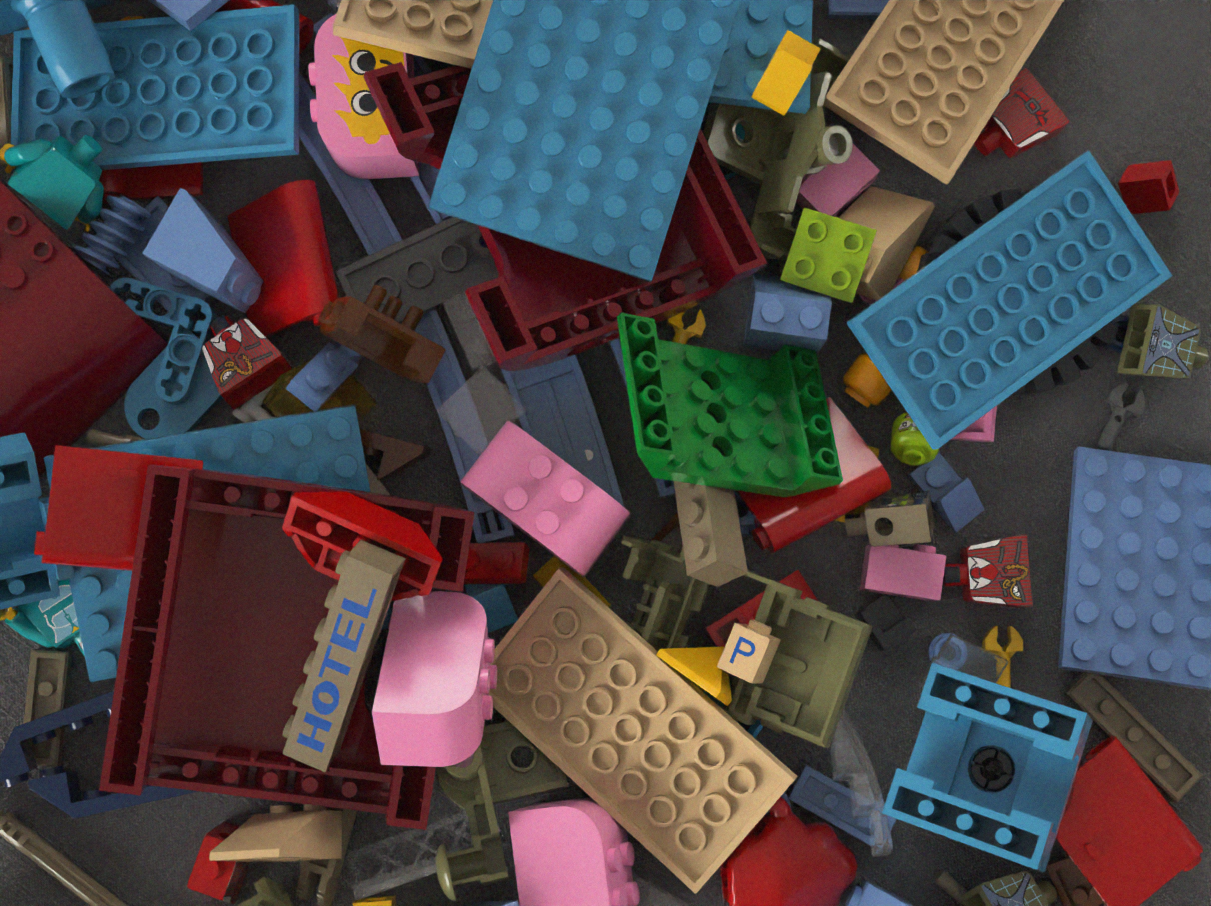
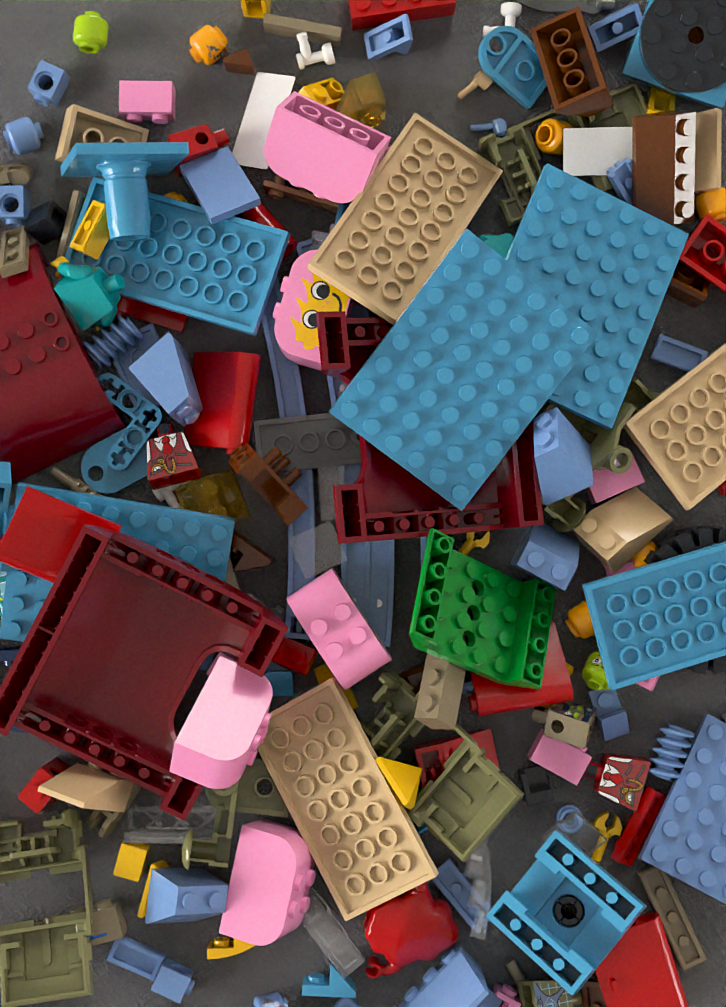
camera: 20 degrees right, 5 degrees up
(37, 99) = (92, 232): none -> yellow slope
(324, 375) = (220, 490): medium blue plate -> none
(336, 521) = (208, 623): red wedge -> none
(342, 655) = (170, 689): dark tan brick -> none
(749, 651) = (436, 781): tan brick -> none
(756, 167) = (560, 457): none -> medium blue slope
(786, 73) = (604, 400): yellow slope -> none
(828, 255) = (587, 531): lime hinge -> none
(1043, 628) = (638, 827): none -> red plate
(1046, 513) = (670, 752): none -> medium blue piece

